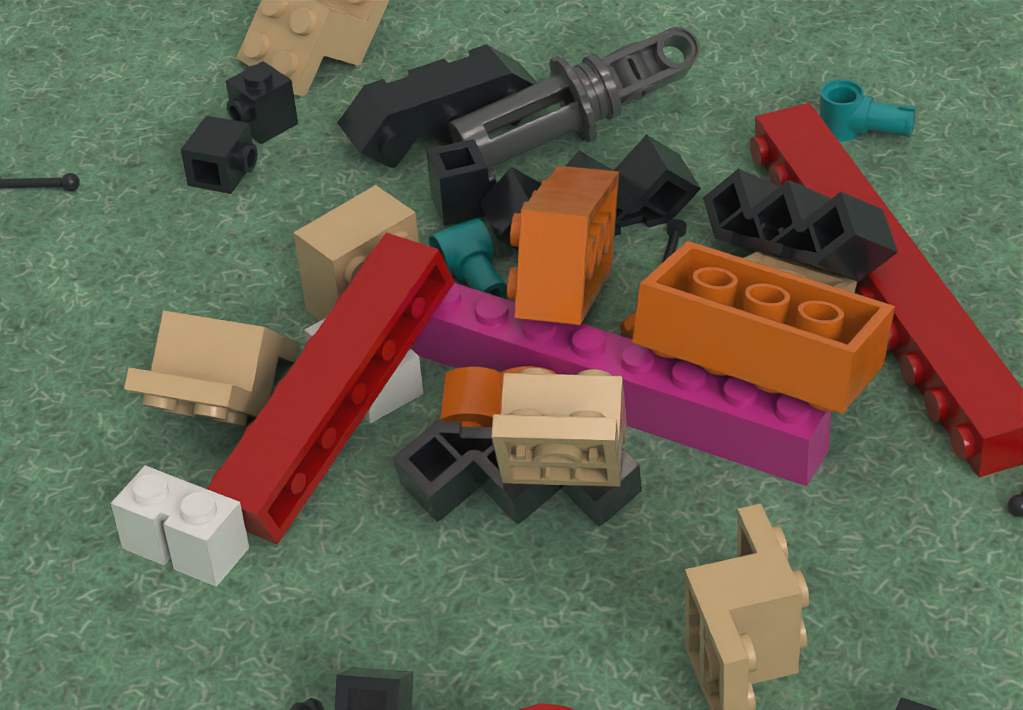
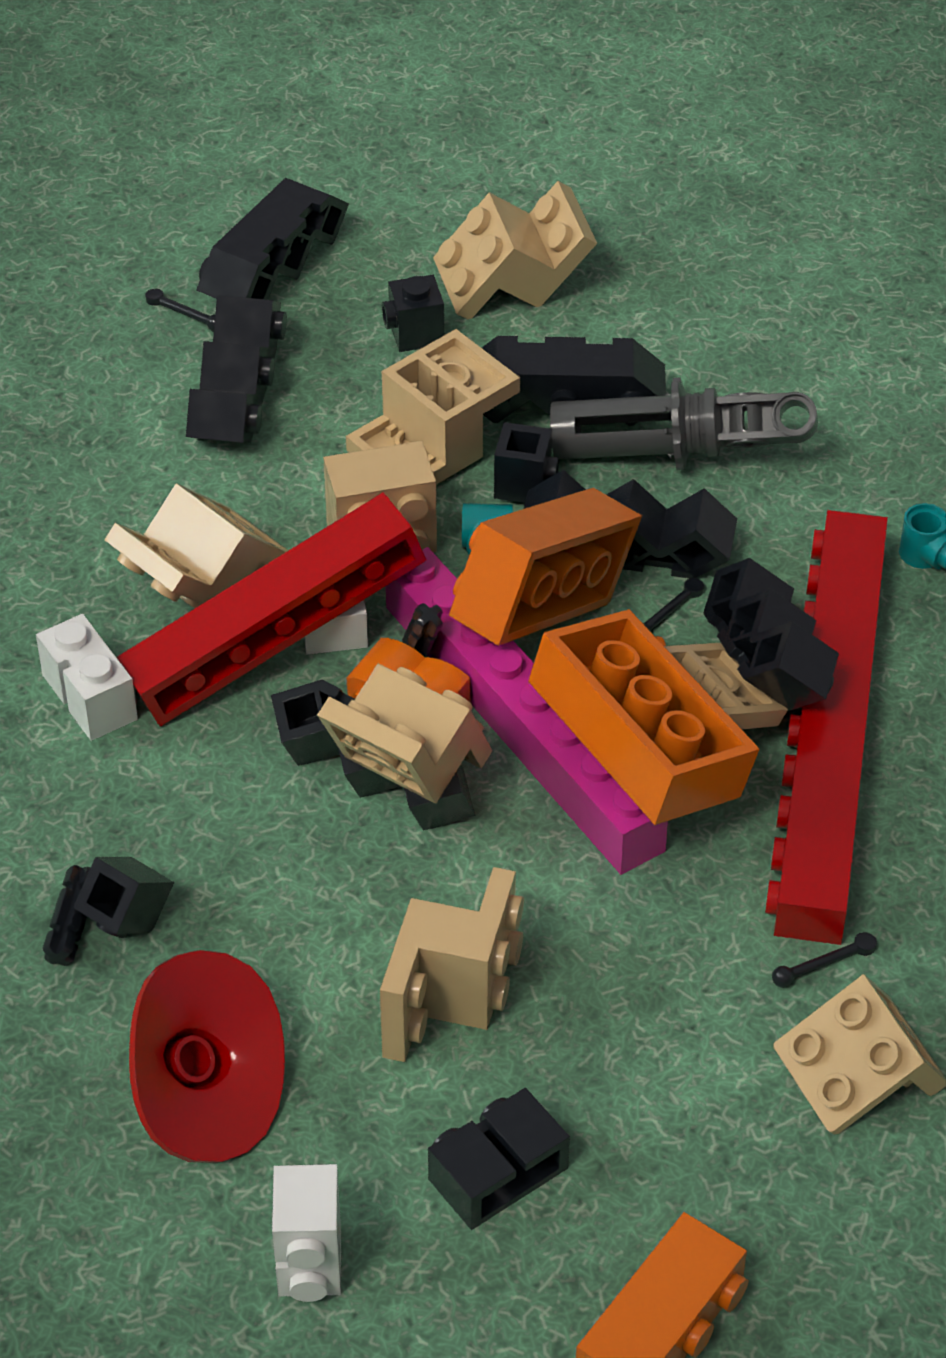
camera: 25 degrees right, 5 degrees up
(83, 97) = (271, 241): none -> black brick
(129, 206) = (236, 370): none -> black brick
(219, 154) = (347, 349): black brick -> none
(343, 151) = (439, 400): none -> tan bracket
(489, 343) = (424, 628): none -> black axle

